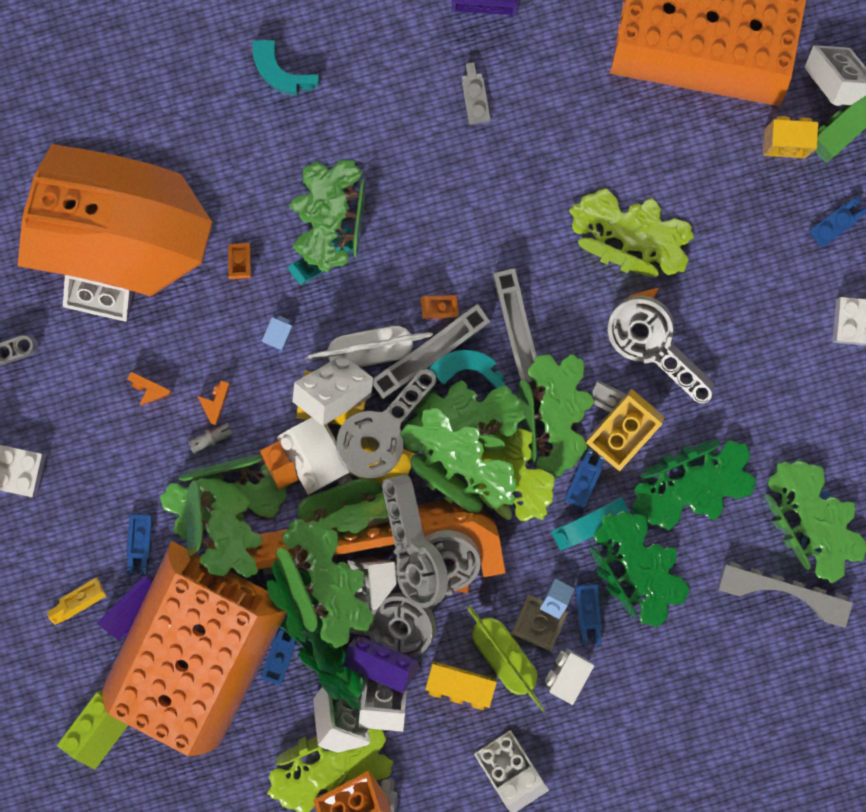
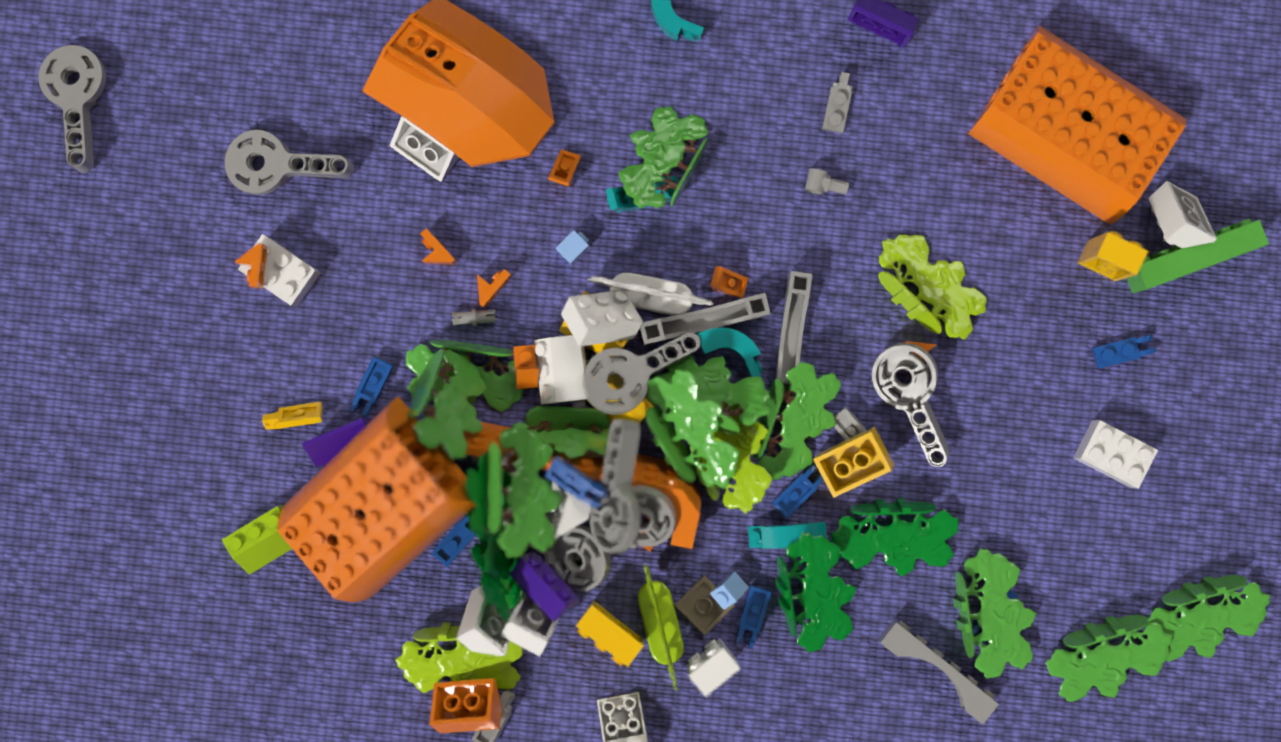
camera: 30 degrees right, 0 degrees up
(370, 554) = (575, 482): none -> blue hinge
(487, 177) = (820, 182): none -> light grey pin

